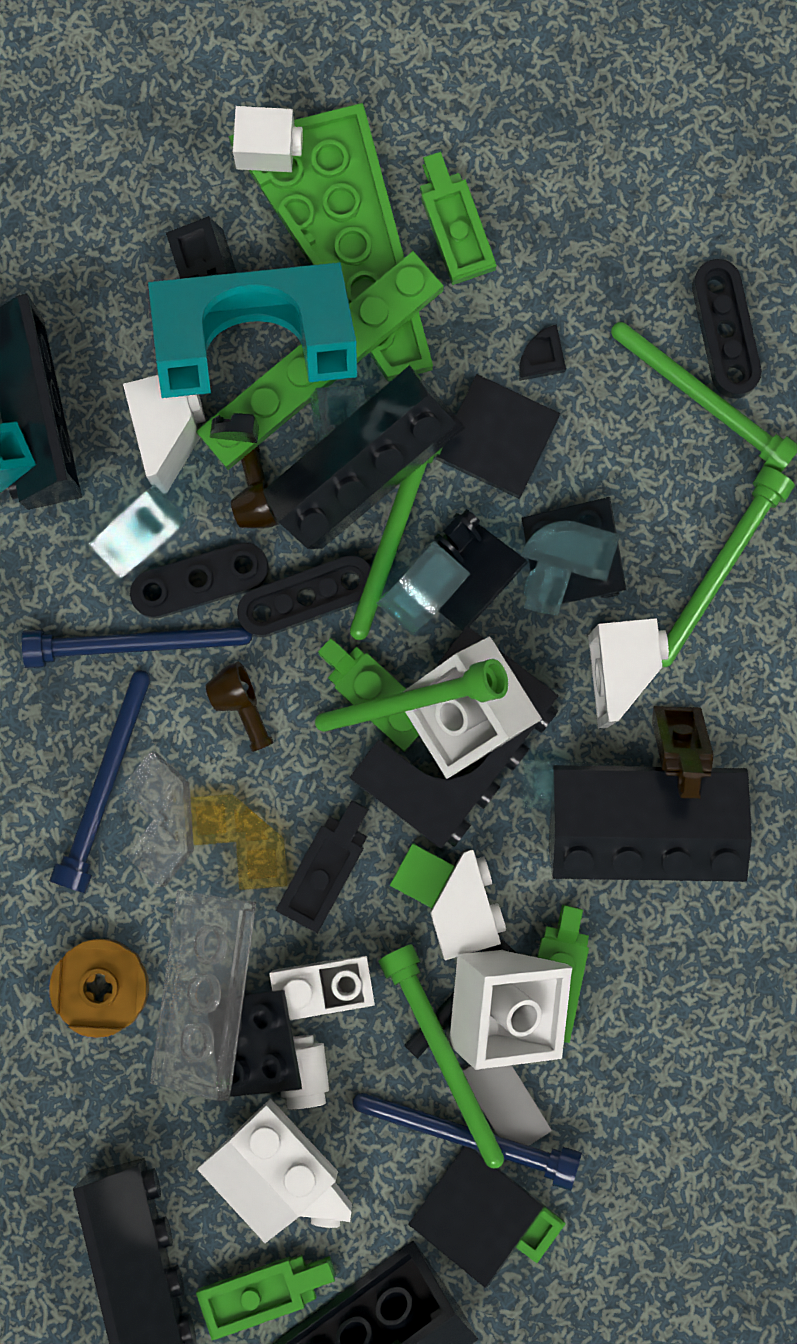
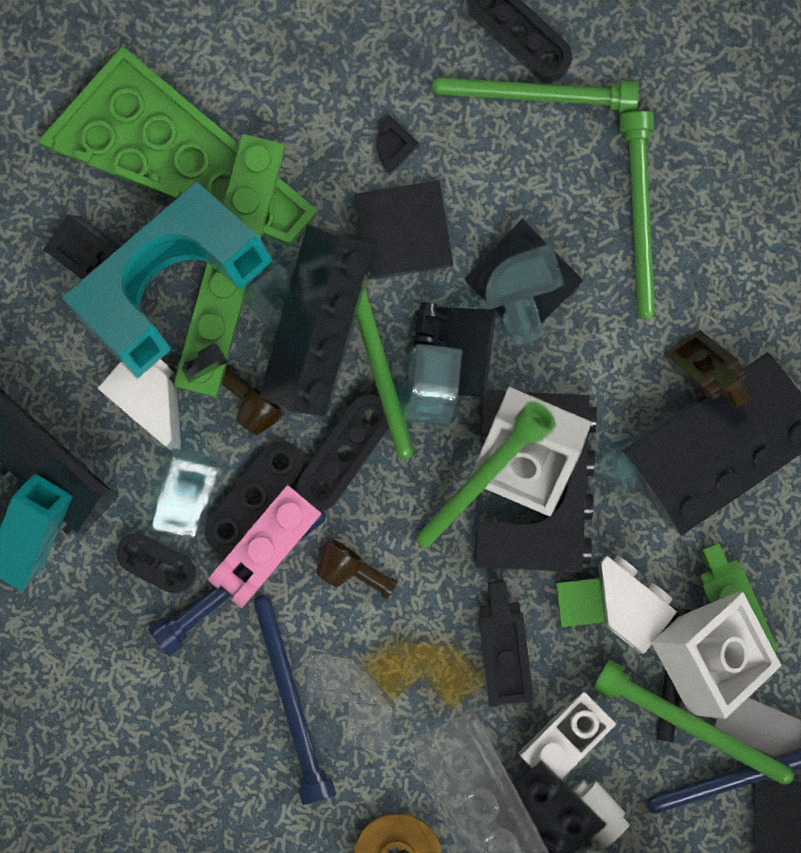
camera: 30 degrees left, 0 degrees up
(62, 583) = (161, 554): none -> black beam
(178, 628) = (266, 545): none -> bright pink plate
(266, 139) = (70, 125): white brick -> none
(363, 680) = (435, 485): bright green hinge -> none
(455, 222) = (256, 89): bright green hinge -> none
(623, 664) = (623, 339): white slope -> none

